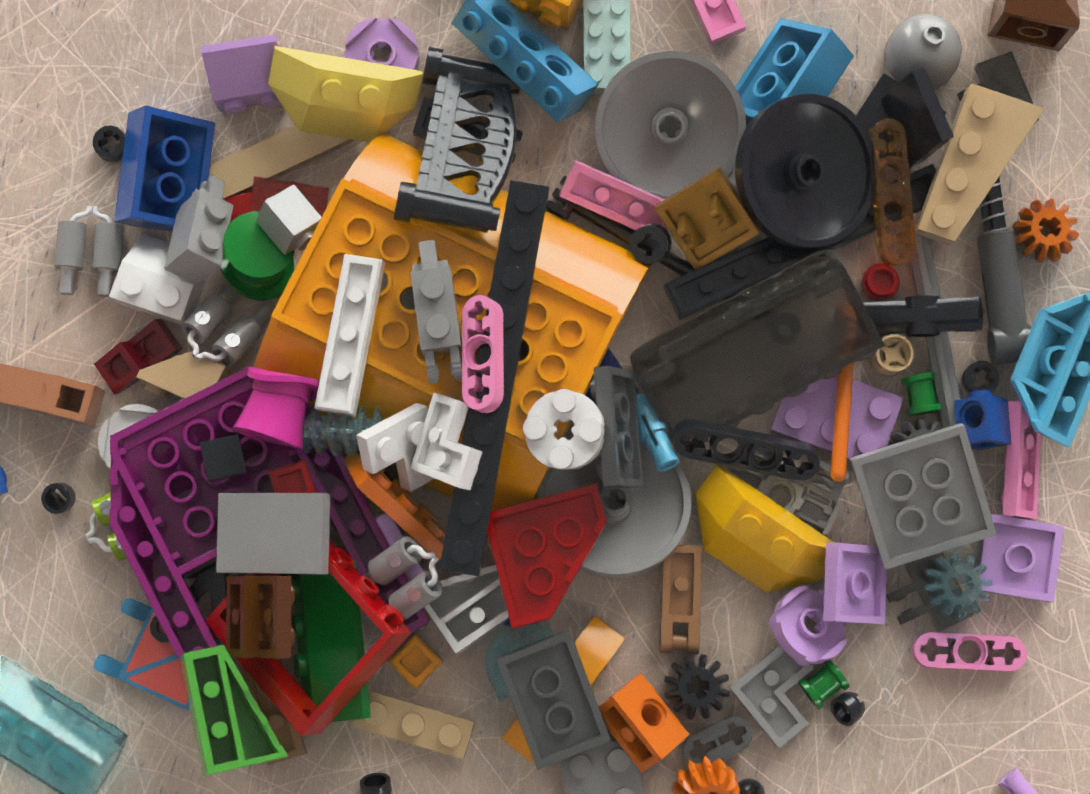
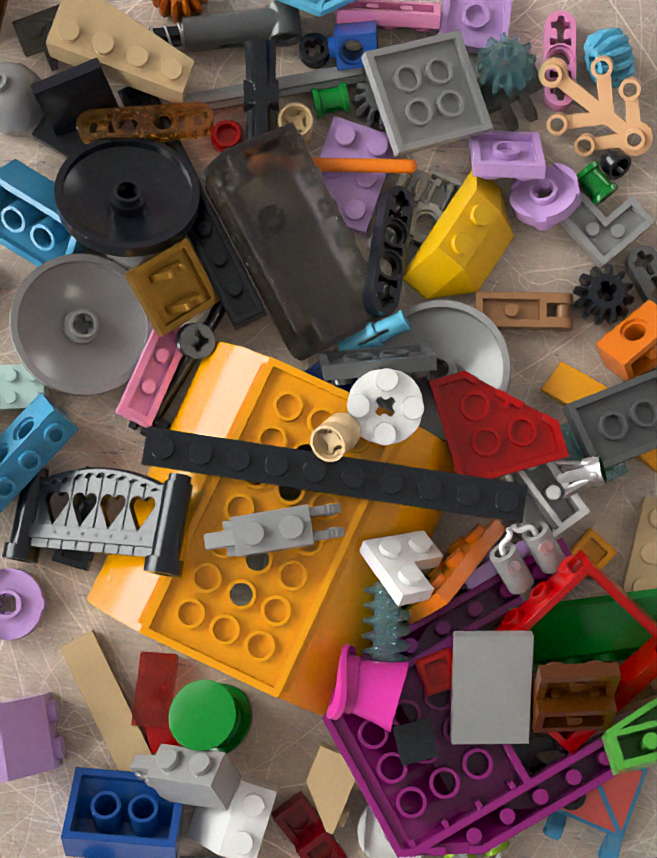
camera: 90 degrees left, 0 degrees up
(235, 340) = (292, 736): light grey piece -> none
(288, 220) = (179, 684): brick -> none
(341, 93) = (48, 641): light yellow wedge -> none
(349, 335) = (296, 617): white tile -> none
(438, 447) = (405, 526): white plate -> none
(492, 644) = (586, 472): none -> flat silver piece
(495, 365) = (286, 477): bright pink beam -> none
(532, 376) = (335, 437): none -> tan wheel
(906, 689) = (600, 110): none -> light nougat plant
(967, 704) = (616, 46): none -> medium azure gear

